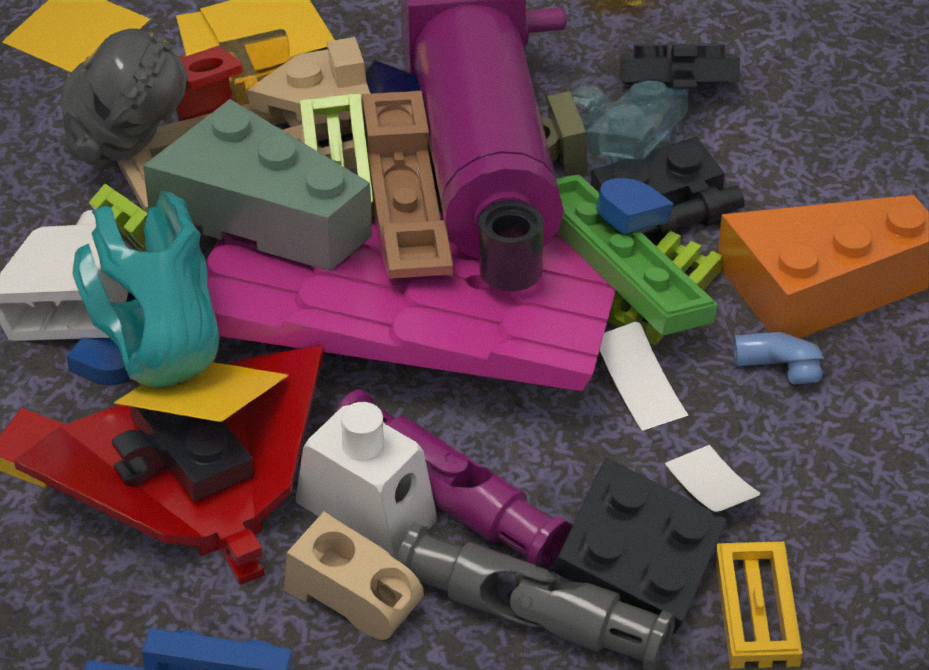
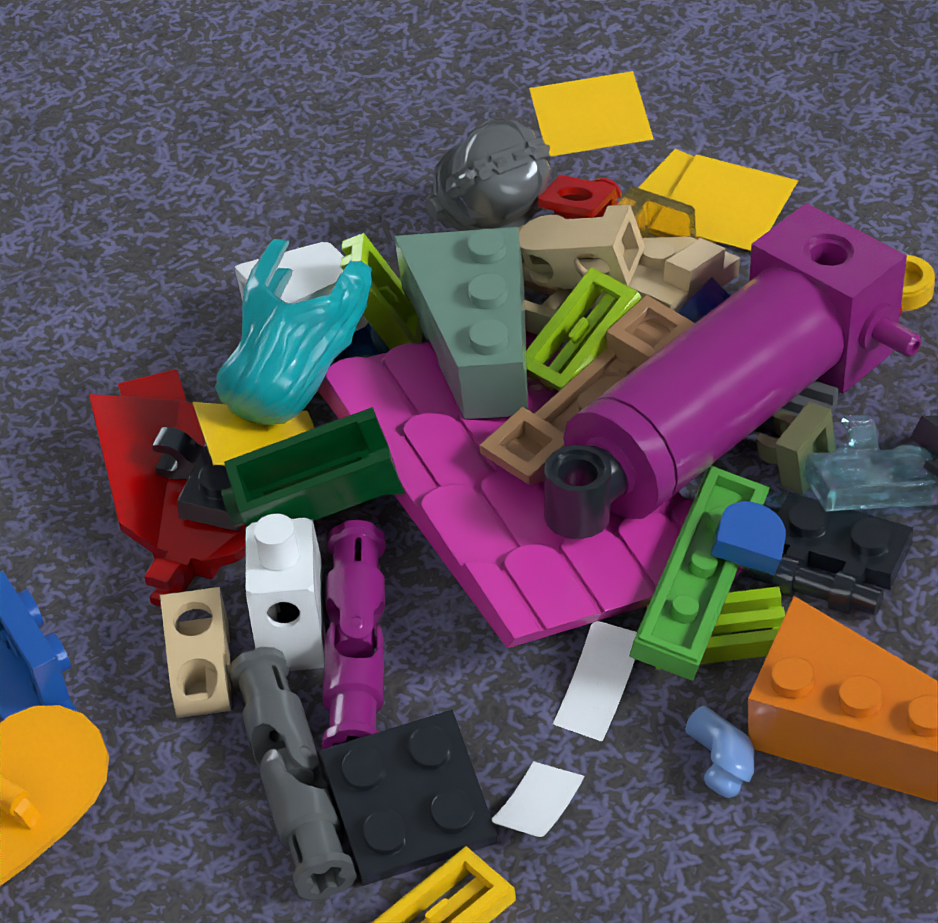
camera: 55 degrees right, 0 degrees up
(270, 89) = (564, 249): none -> tan leg
(281, 437) = (313, 472): none -> dark green window

